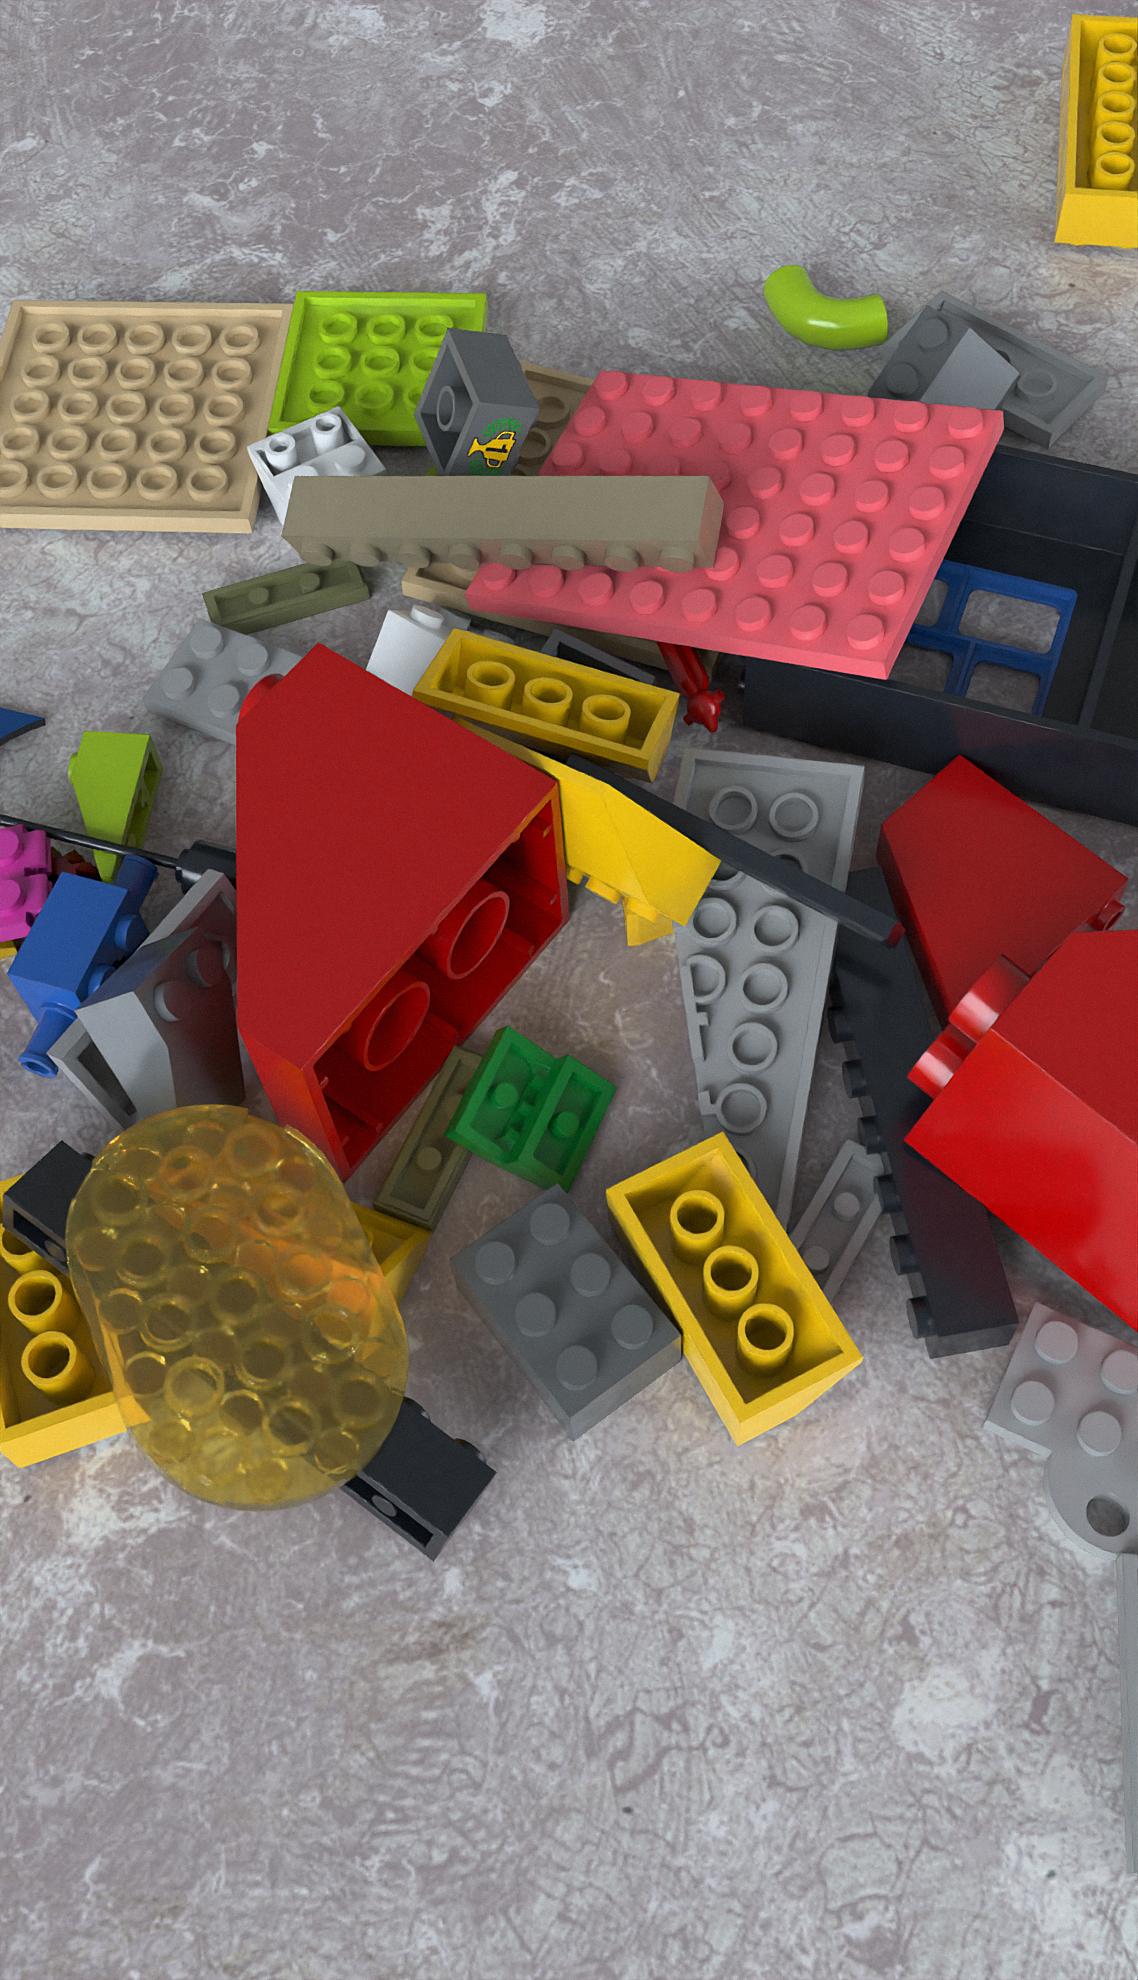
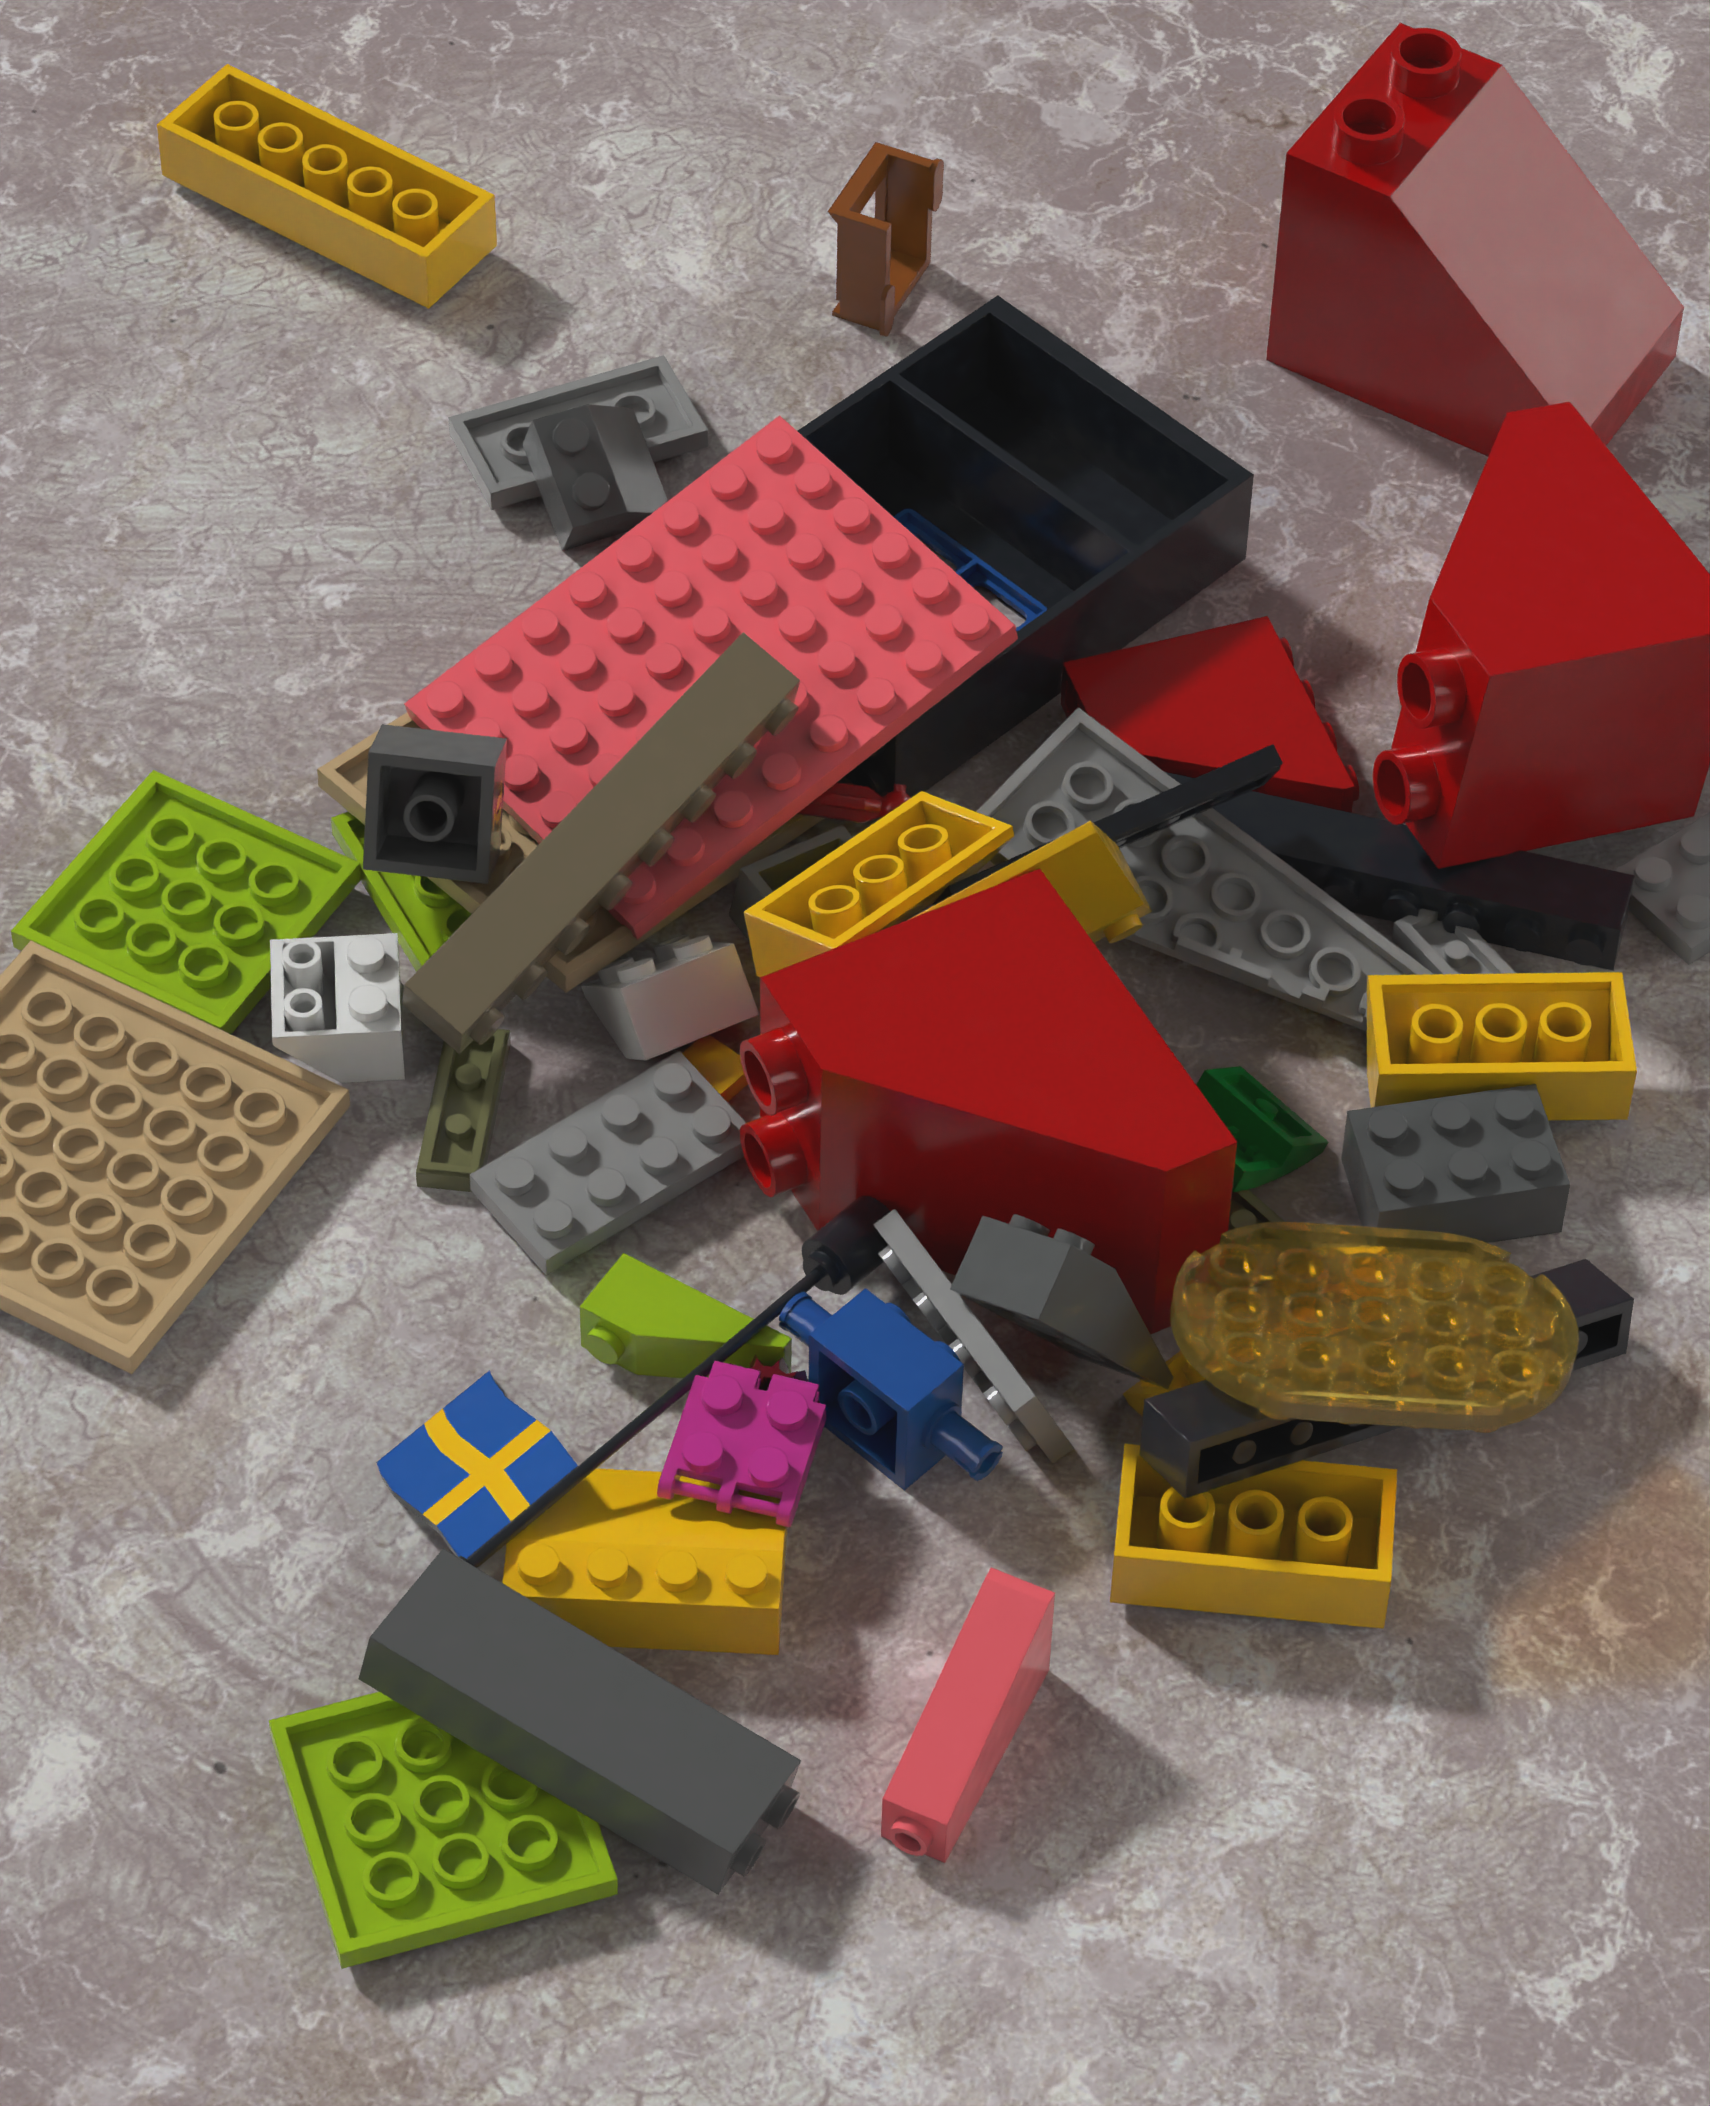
camera: 70 degrees left, 10 degrees down
(824, 319) = (406, 526): lime cylinder -> none

